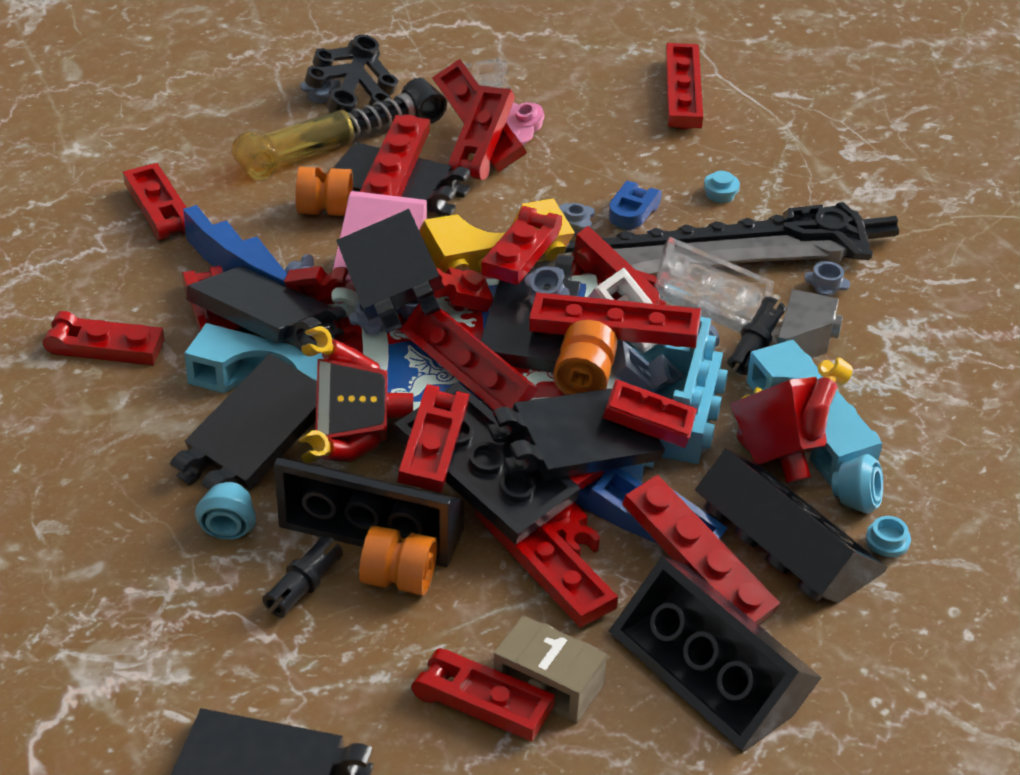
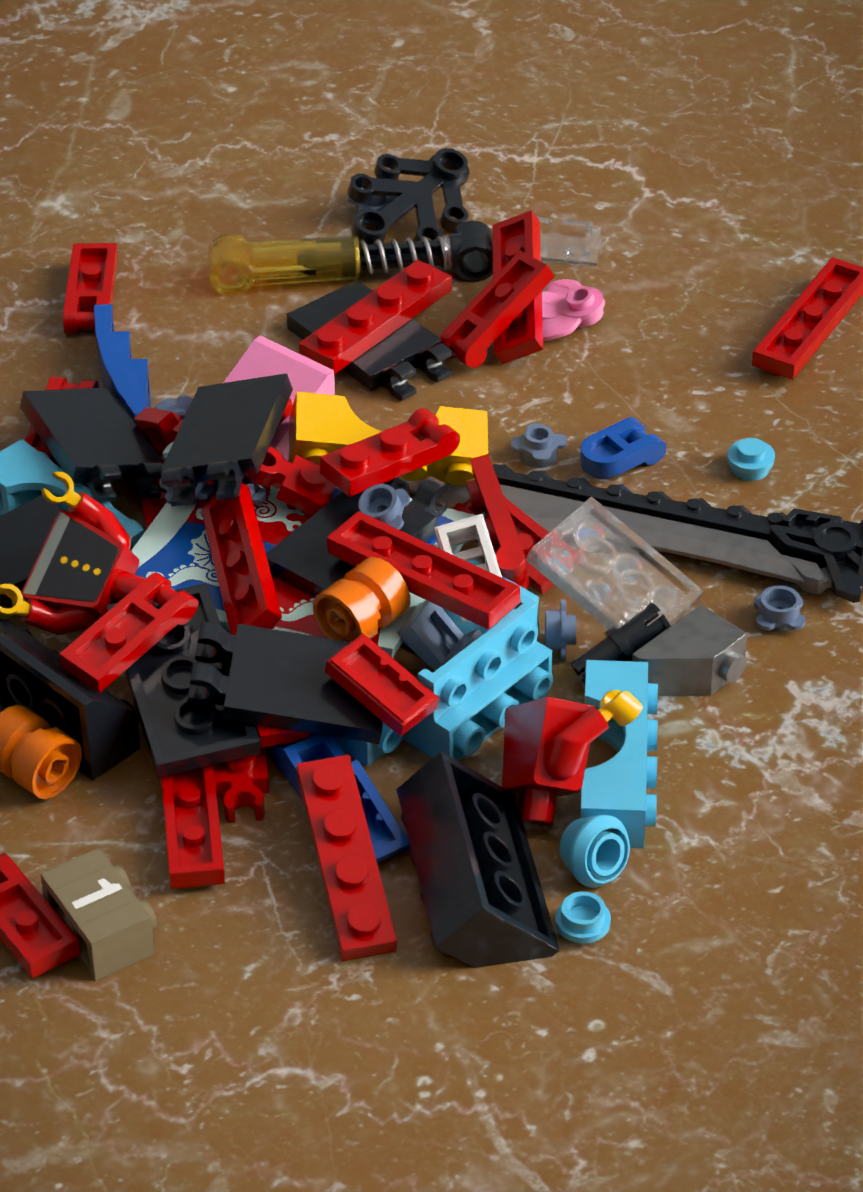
camera: 30 degrees right, 0 degrees up
(323, 190) = (263, 316): orange wheel -> none
(713, 654) = (278, 962): black slope -> none

